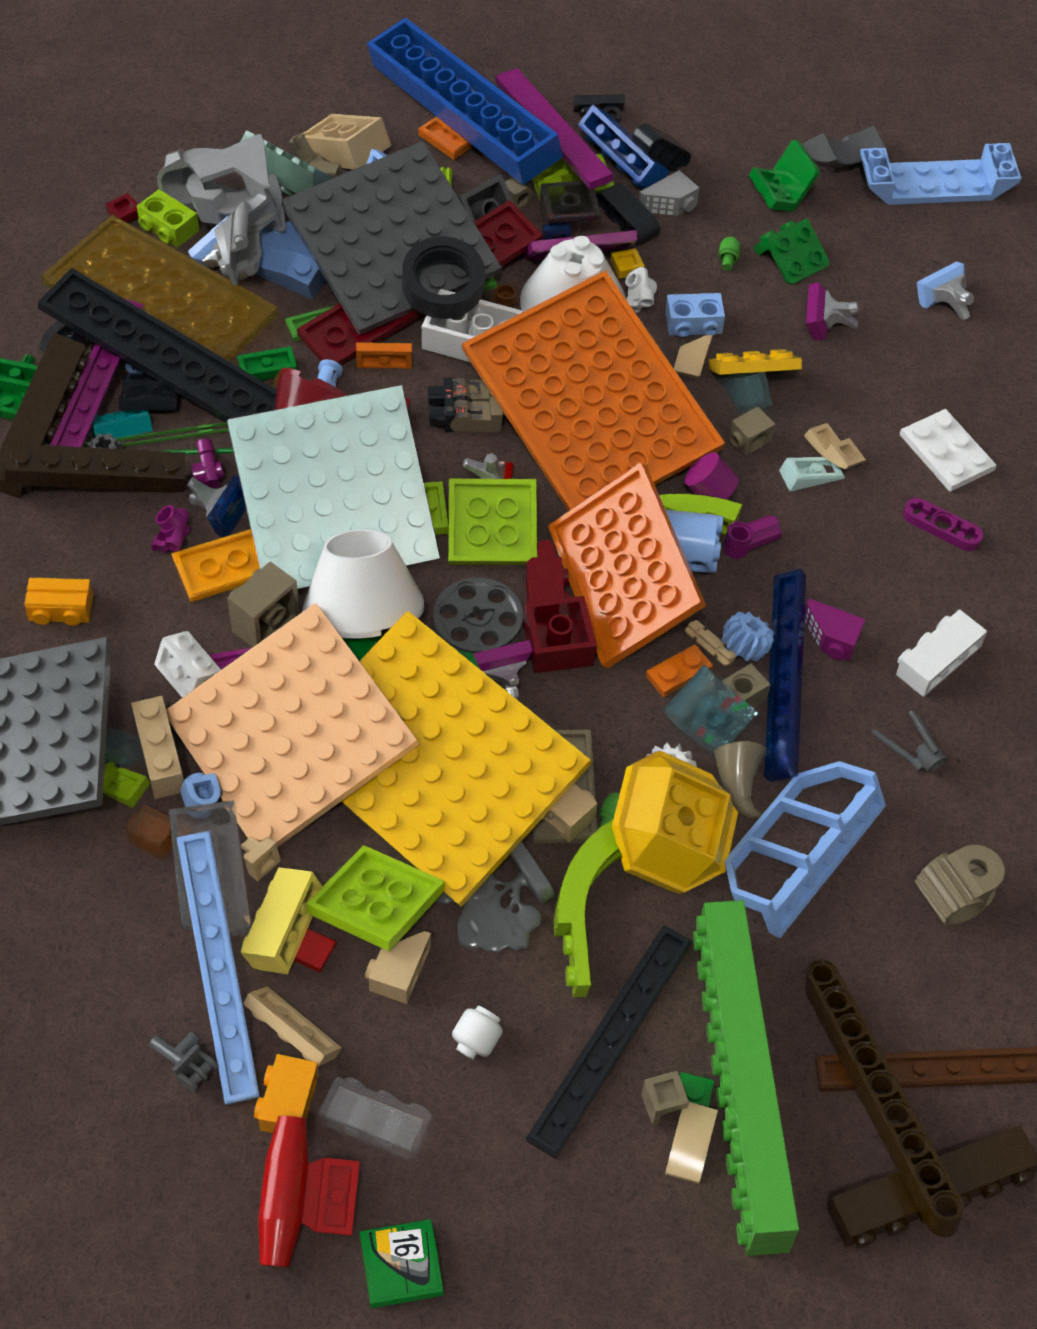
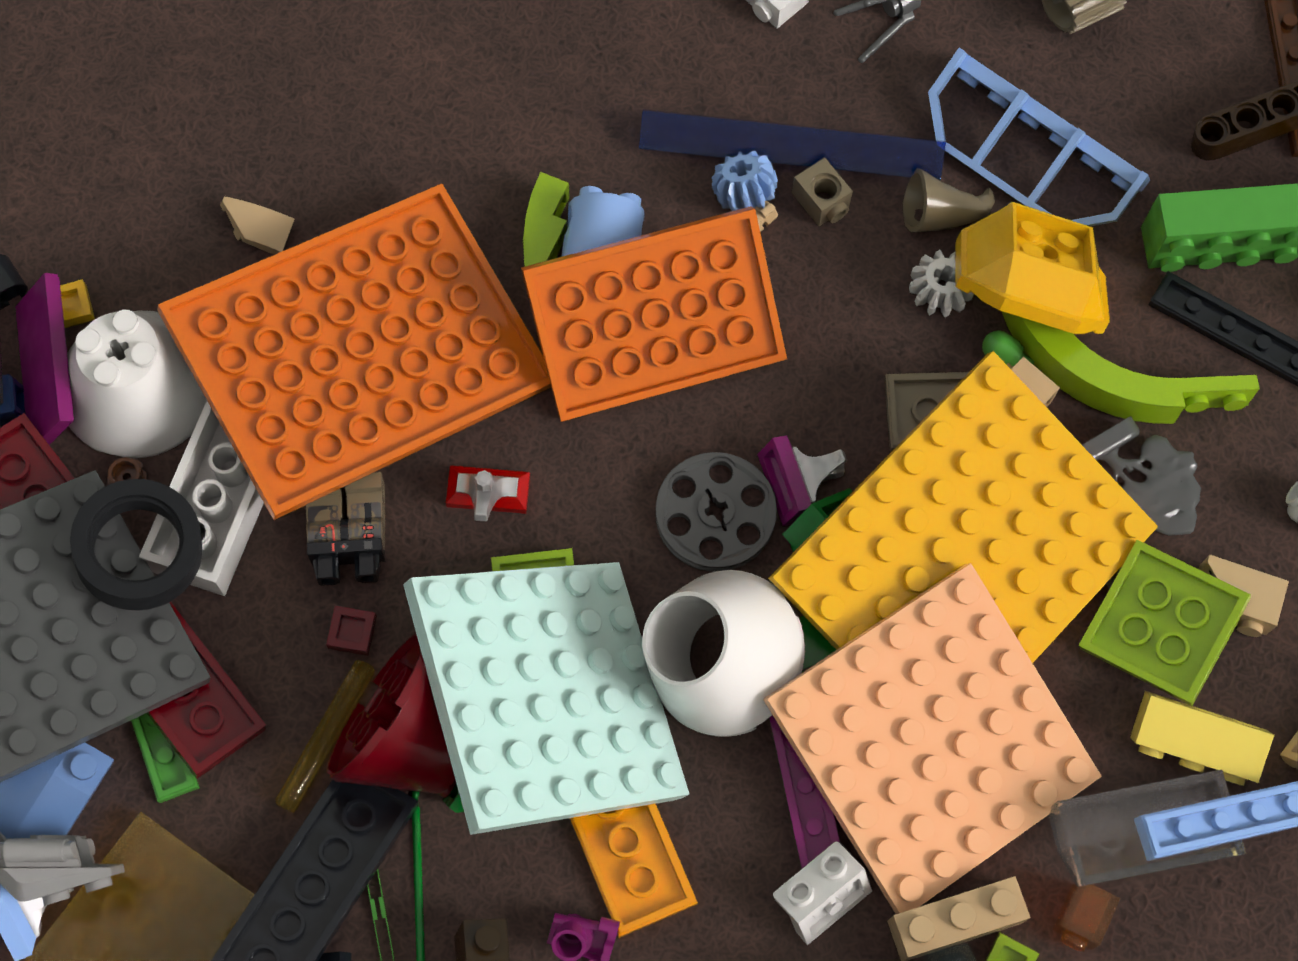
camera: 90 degrees left, 15 degrees up
(200, 789) = (1025, 854): light blue plate -> none
(209, 470) = (468, 893): magenta plate -> none
(223, 505) = (531, 868): clear blue piece -> none
(260, 856) = (1110, 773): tan tile -> none
(263, 604) = (730, 788): dark tan brick -> none
(267, 363) = (255, 821): green plate -> none
(315, 950) = (1225, 698): red tile -> none
(326, 372) = (286, 728): light blue bush -> none
(384, 355) = (245, 629): orange plate -> none
(492, 521) = (567, 488): lime plate -> none
(545, 575) = (664, 422): dark red hinge -> none
(559, 634) = (754, 402): dark red brick -> none
(640, 289) = (141, 287): white plate -> none
(677, 670) = (790, 270): orange plate -> none
(694, 314) = (174, 218): light blue brick -> none
(709, 710) = (865, 231): clear light blue slope -> none
(712, 477) = (495, 206): magenta piece -> none
(729, 252) = (54, 166): bright green cylinder -> none
(747, 390) = (325, 158): clear light blue slope -> none
(747, 536) = (574, 163): magenta piece -> none
(751, 431) = (400, 158): dark tan brick -> none
(754, 362) = (286, 143): yellow plate -> none
(794, 250) = (56, 80): green bracket -> none
(808, 472) = (464, 96): light aqua slope -> none
(825, 311) = (184, 47): piece -> none
(833, 629) = (728, 83): magenta slope -> none
(840, 453) = (433, 57): tan slope -> none

